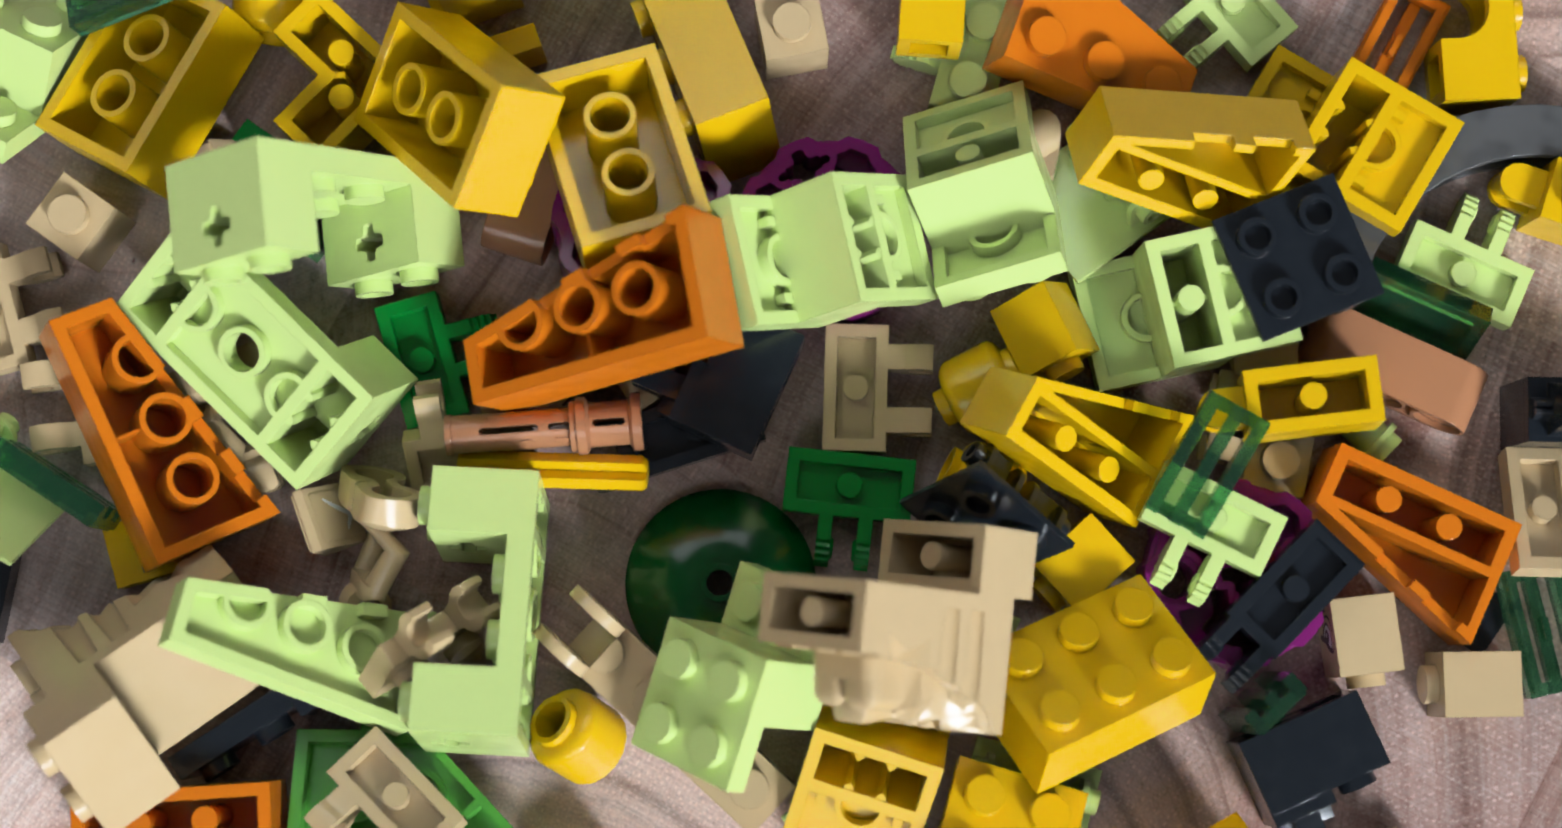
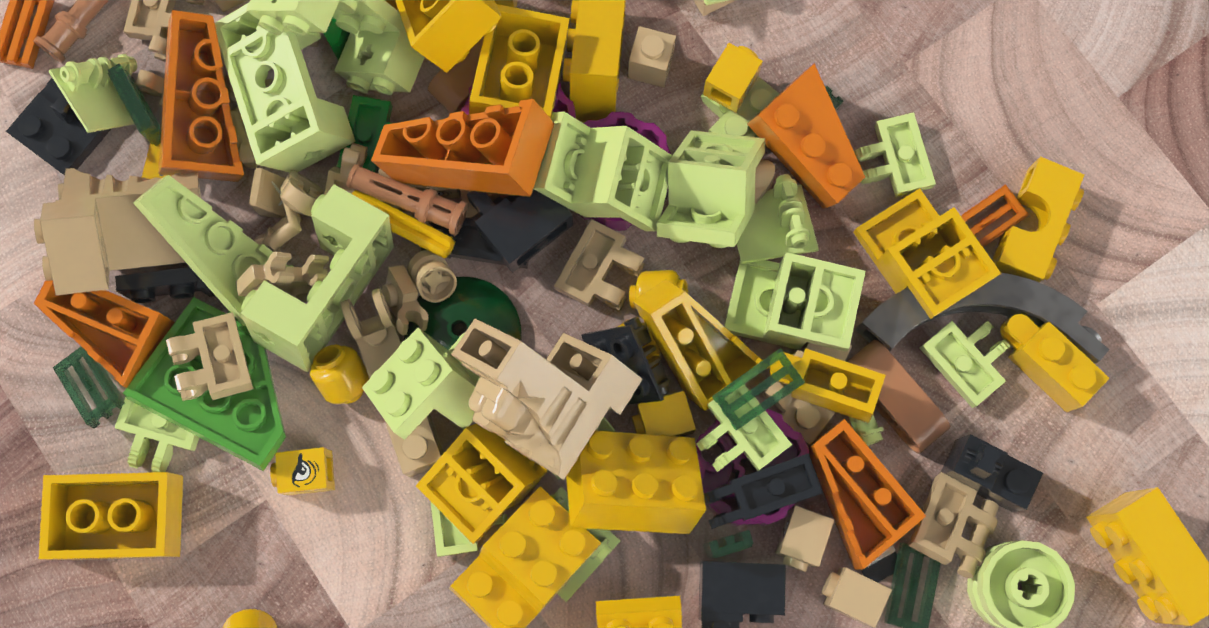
camera: 30 degrees right, 5 degrees down
(614, 581) = (402, 299): none -> tan plate
(638, 525) = (432, 276): none -> tan wheel
(847, 488) = (555, 312): green hinge -> none
(1045, 331) = (710, 279): yellow brick -> none
(1188, 149) = (835, 215): yellow wedge -> none
(1298, 257) = (868, 302): black hinge -> none
(1427, 310) = (930, 370): clear green tile -> none

